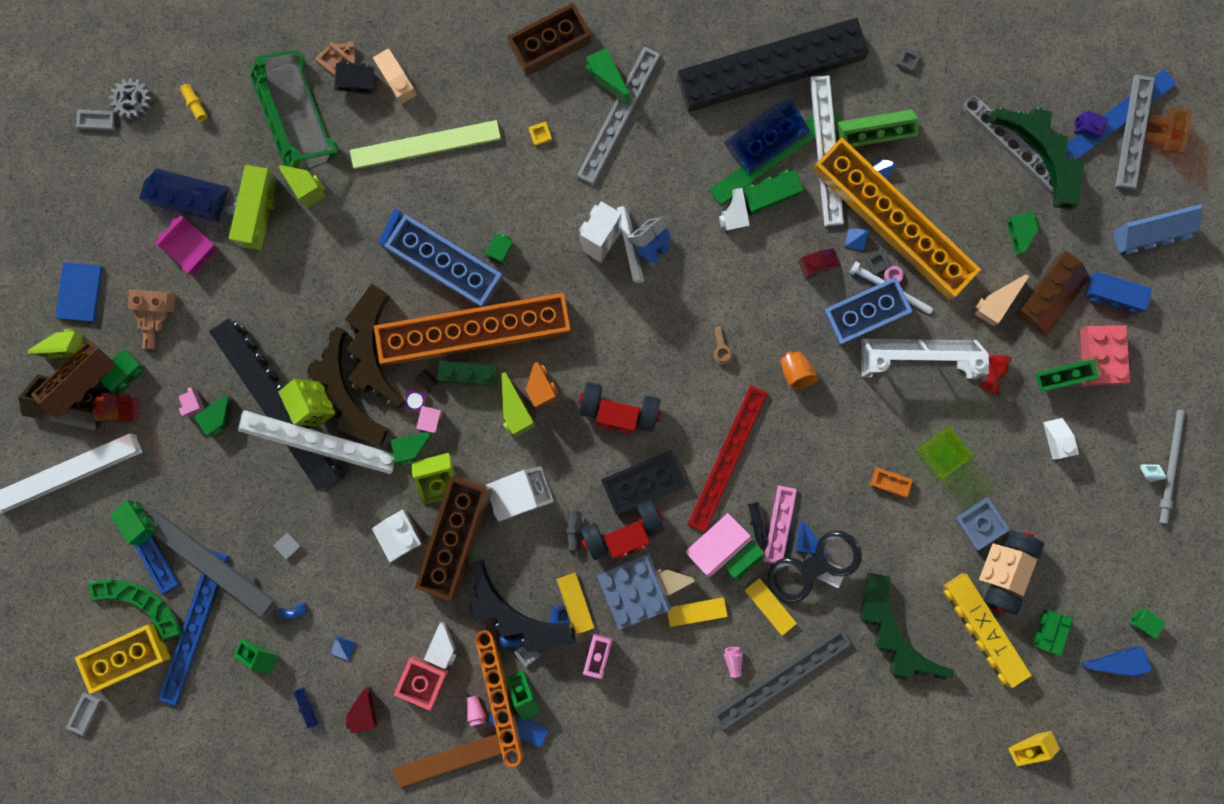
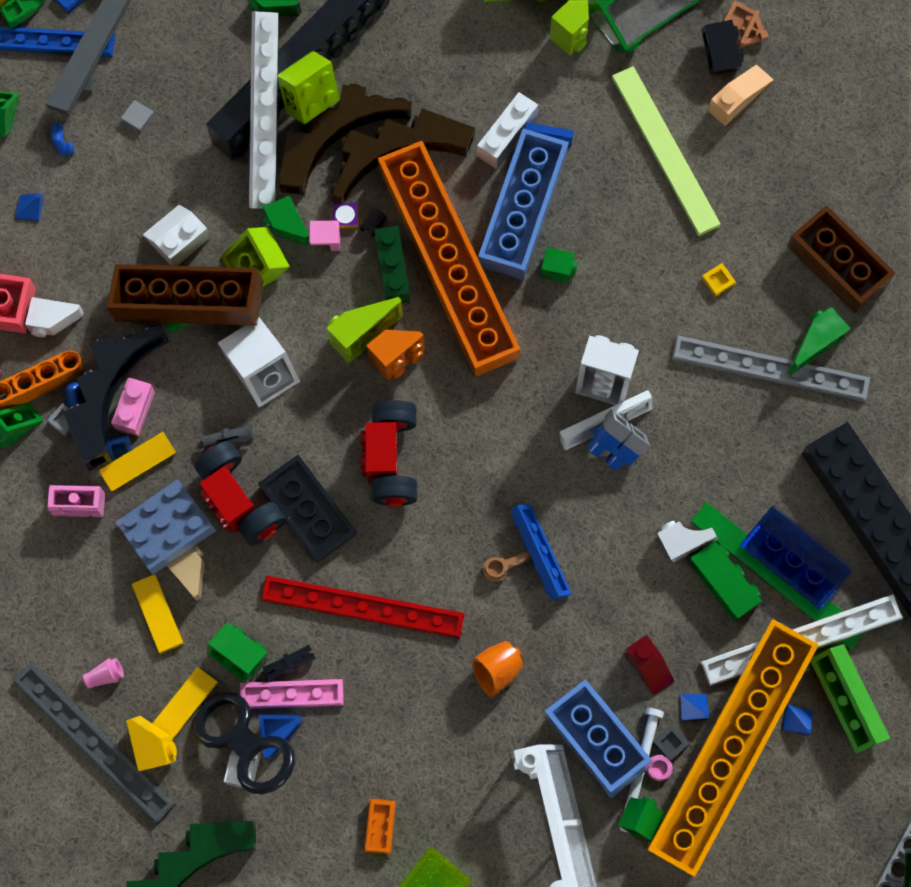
camera: 75 degrees right, 10 degrees down
(379, 259) = (507, 130): none -> white brick
(532, 597) = (133, 407): none -> bright pink brick
(717, 318) = (540, 551): none -> blue plate
(718, 545) = (246, 617): bright pink tile -> none
(797, 636) = (150, 744): none -> yellow slope
(928, 296) = (641, 818): none -> green brick

